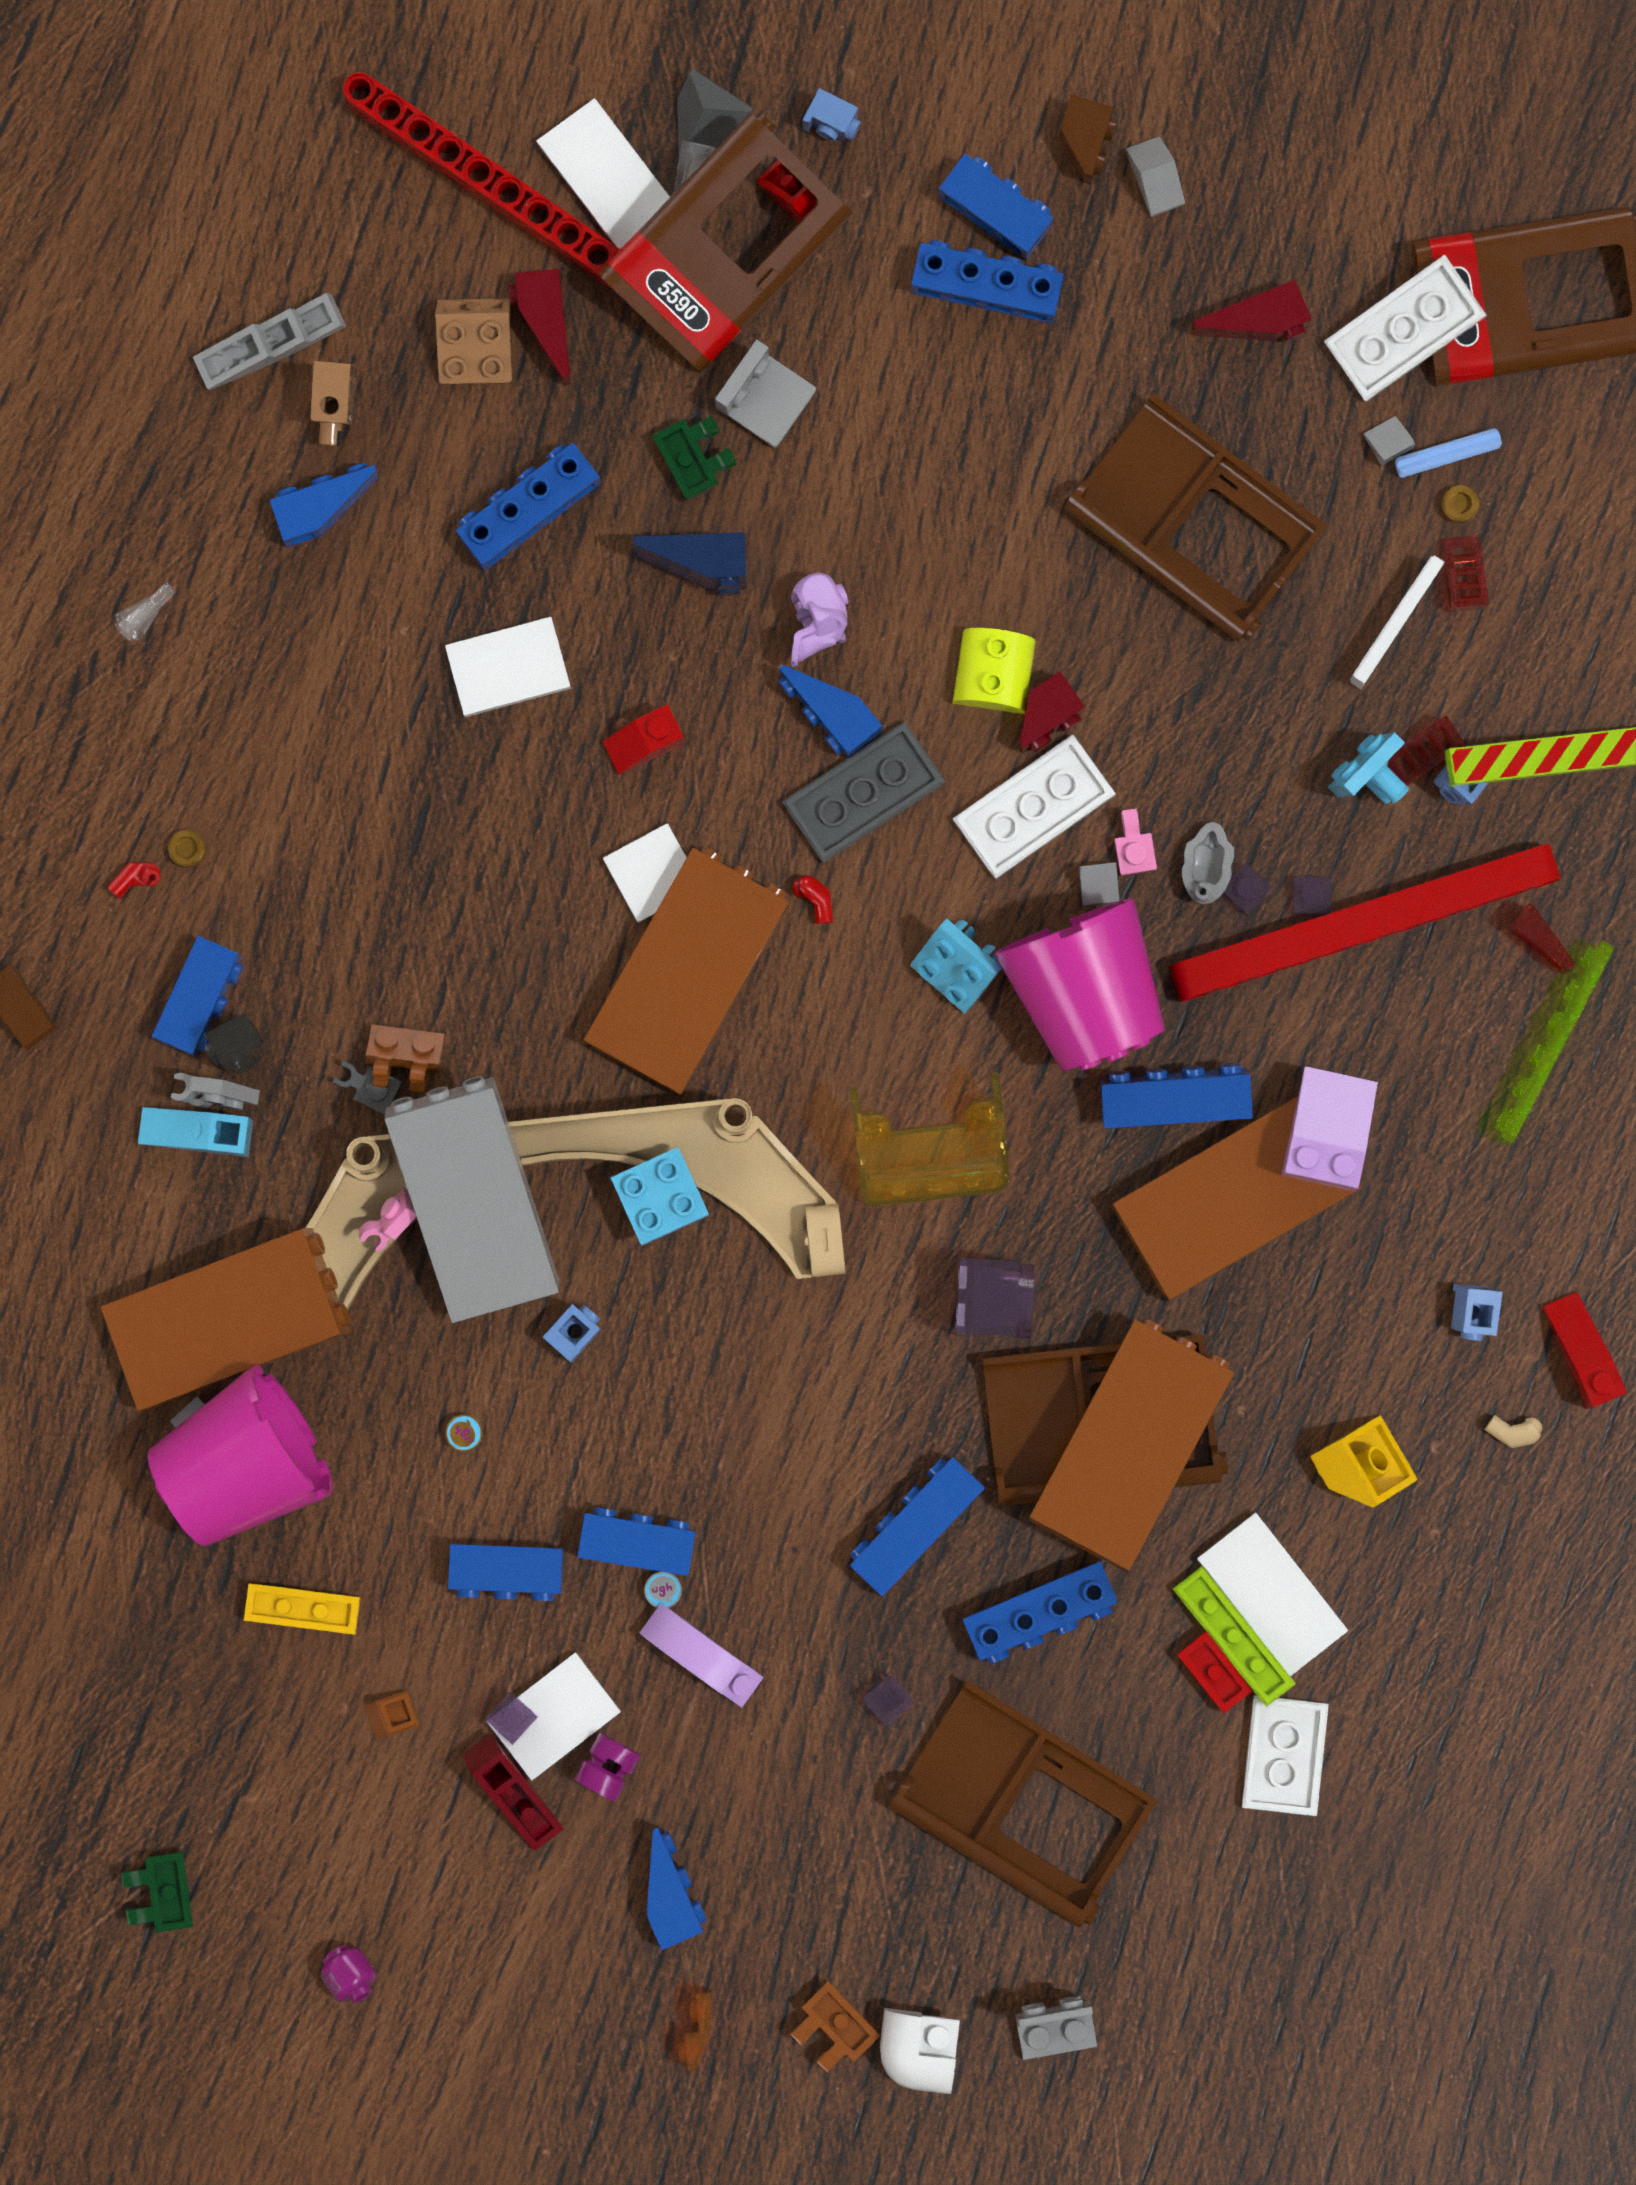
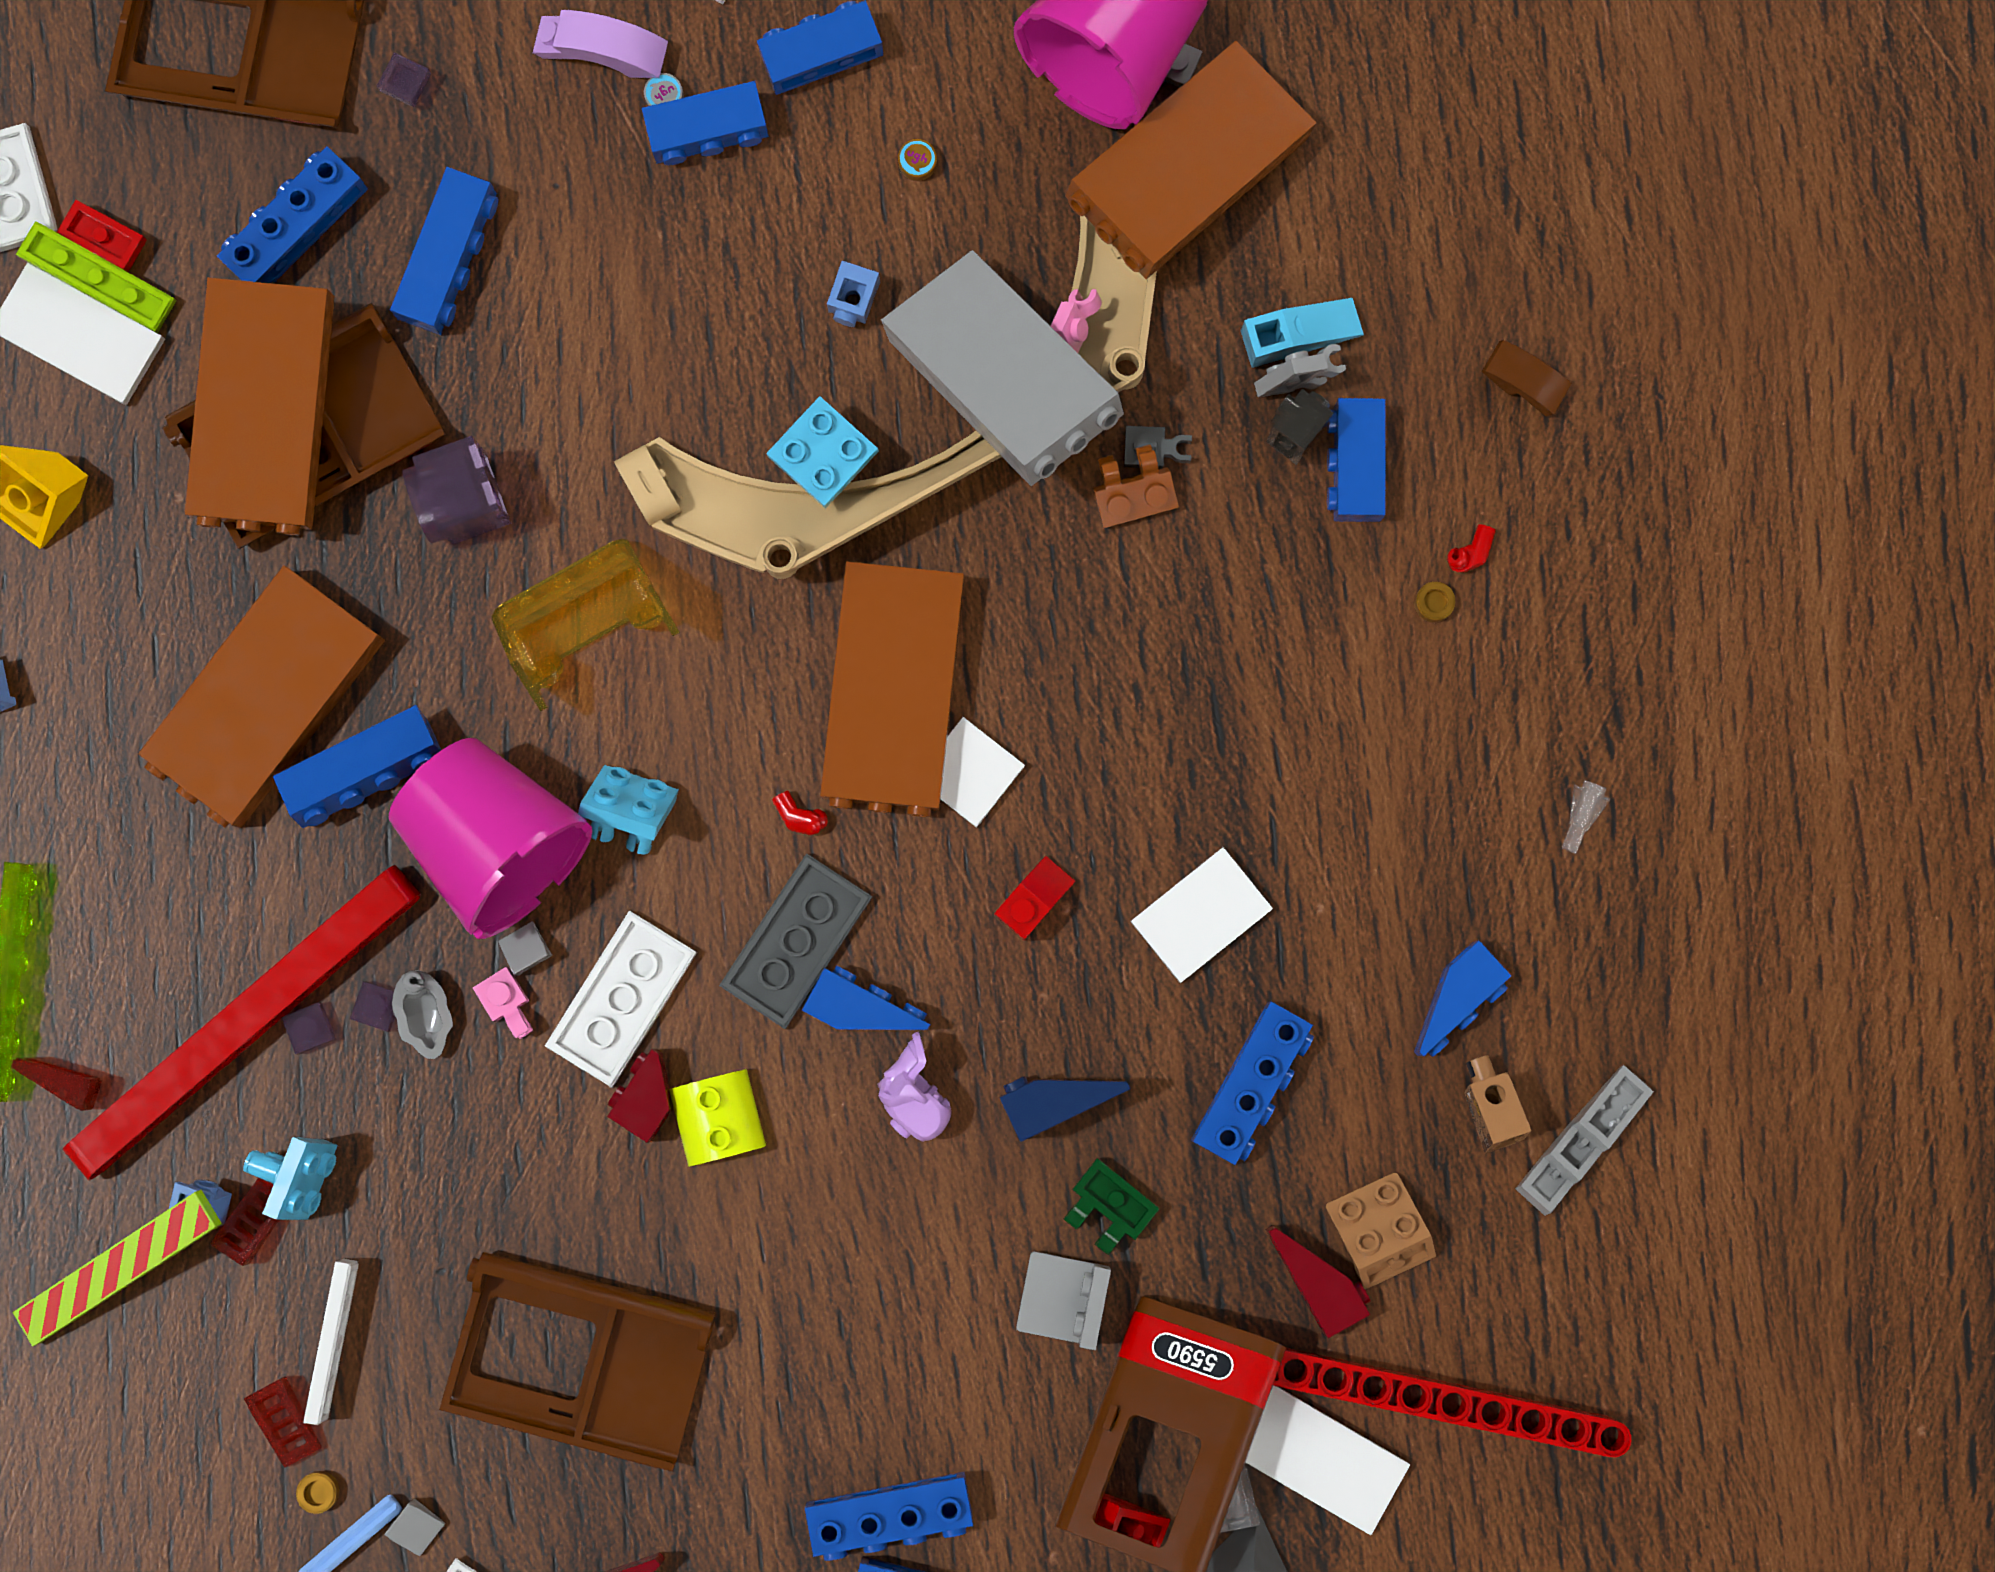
camera: 155 degrees right, 0 degrees up
(1330, 1129) = (187, 794): lavender slope -> none

